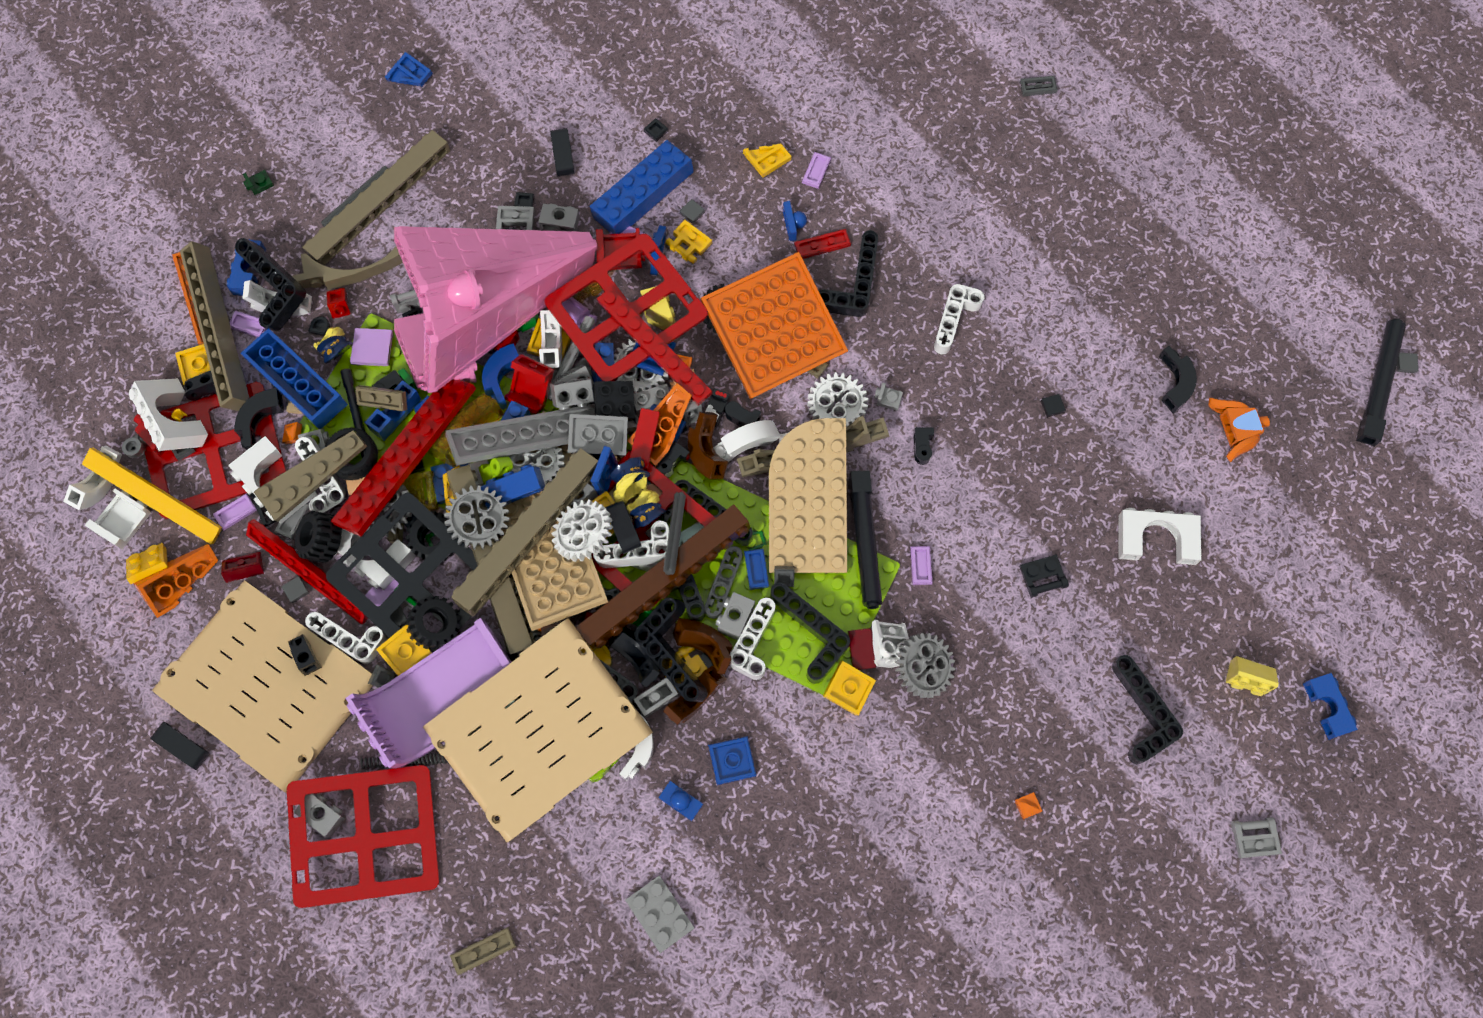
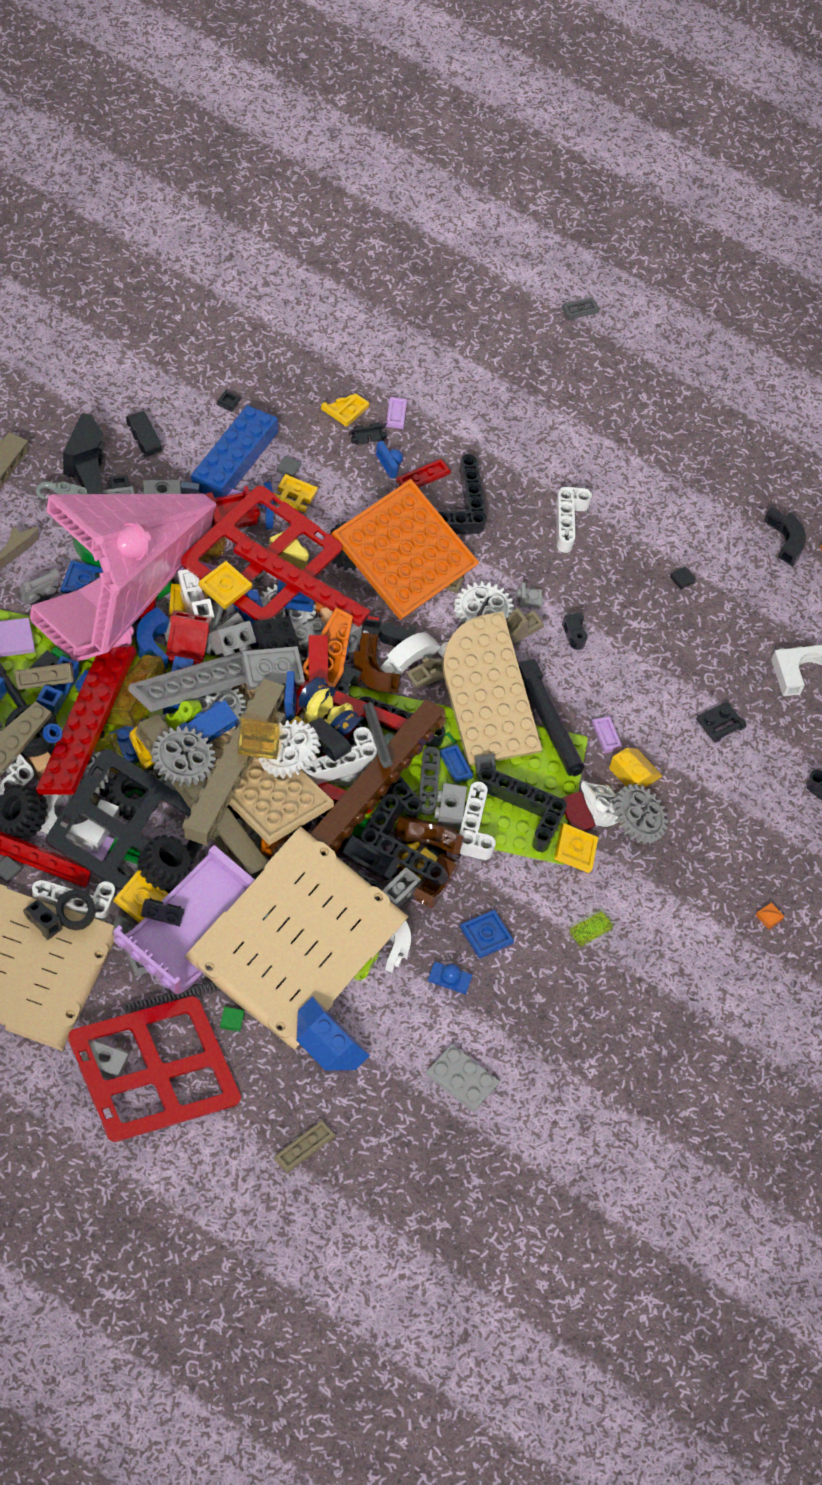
camera: 25 degrees left, 15 degrees down
(321, 648) = (72, 894): none -> black tyre
(363, 471) = (55, 729): none -> blue plate
(407, 669) = (167, 913): none -> black hinge
(456, 796) = (232, 1019): none -> green tile
(492, 169) = (81, 460): none -> black slope
(537, 844) = (326, 1039): none -> blue wedge
(550, 516) = (258, 738): none -> clear yellow slope
(577, 336) = (225, 585): none -> yellow plate
(586, 220) = (189, 488): none -> sand blue tile
(787, 188) = (375, 432): none -> black hinge
(838, 779) = (591, 929): none -> clear neon green tile
(937, 611) = (633, 768): none -> yellow slope

